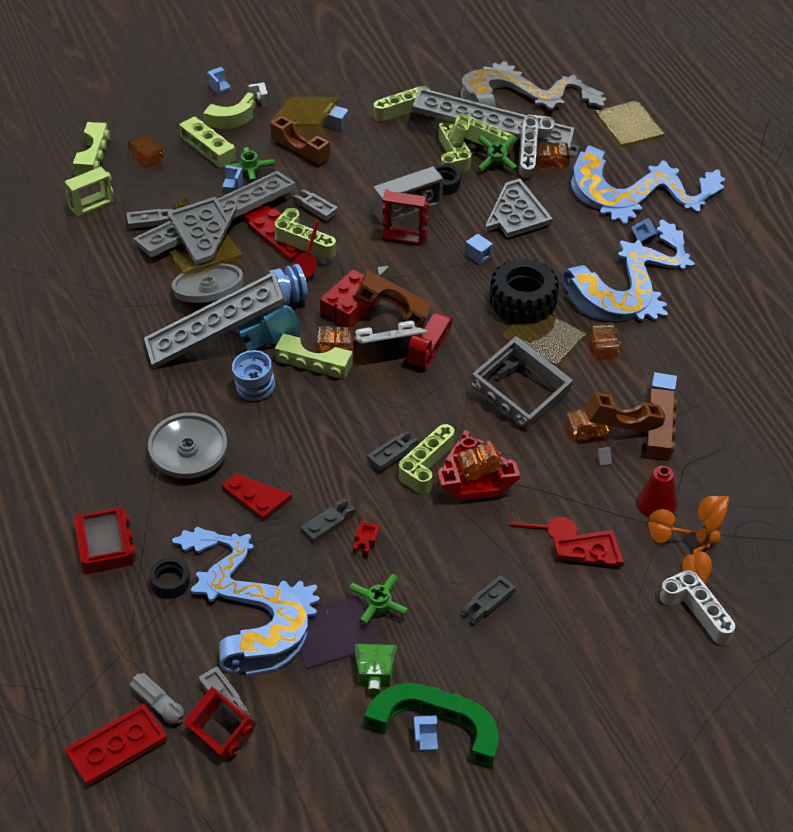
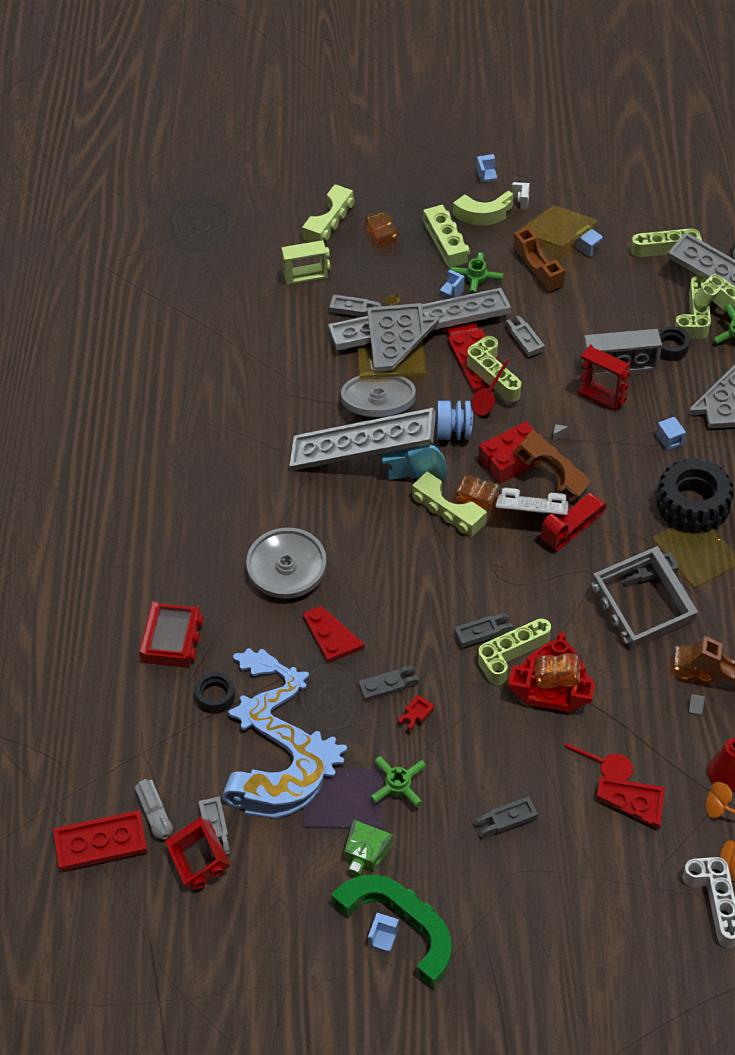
camera: 25 degrees right, 5 degrees up
(253, 375) = (379, 508): light blue wheel -> none

